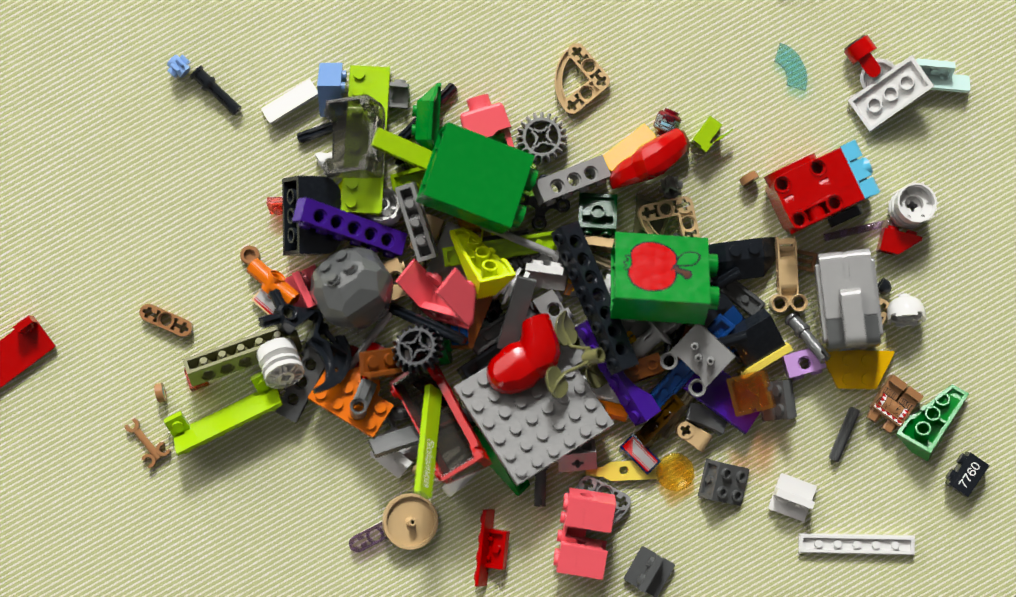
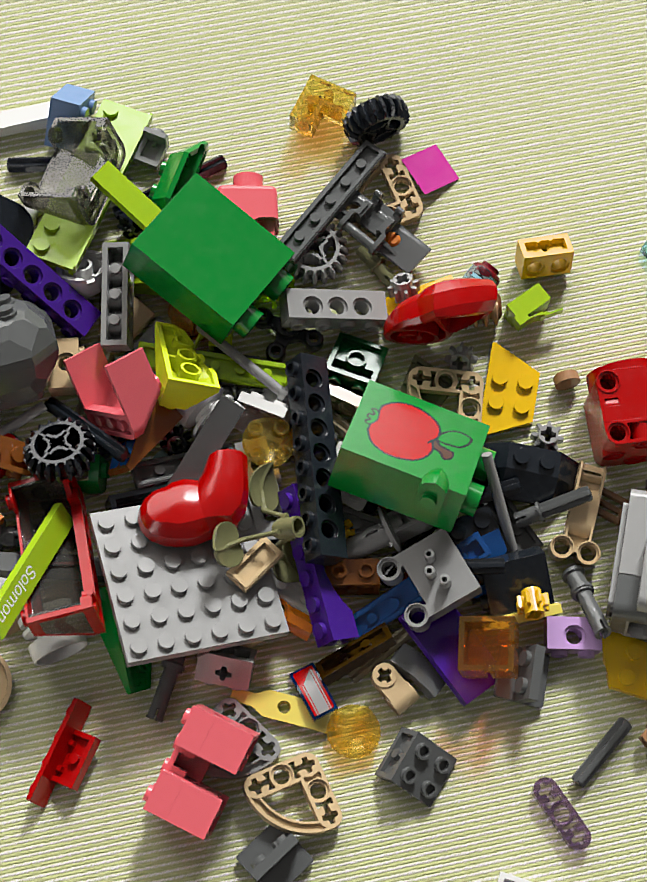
camera: 15 degrees right, 15 degrees down
(511, 18) = (319, 101): none -> clear yellow brick
(543, 98) = (332, 199): none -> dark grey tile
(556, 23) = (376, 119): none -> black gear
(556, 293) = (268, 441): none -> clear yellow dish
(577, 386) = (255, 564): none -> tan tile
(589, 133) = (376, 265): none -> olive axle
(599, 113) = (382, 222): none -> dark grey piece
(605, 45) = (430, 169): none -> dark pink sticker
(615, 147) = (403, 287): none -> light grey gear
(654, 516) = (305, 780): none -> tan beam
(686, 306) = (432, 491): none -> green plate
(707, 91) = (544, 256): none -> yellow brick
(710, 199) = (508, 392): none -> yellow wing
(729, 288) = (499, 501): none -> light grey bar
(744, 230) = (553, 436): none -> light grey gear
(766, 278) = (553, 506): none -> dark grey axle
(772, 353) = (532, 603): none -> yellow gear
(792, 497) = (505, 817): white bracket -> none
(814, 478) = (543, 800): none -> beam

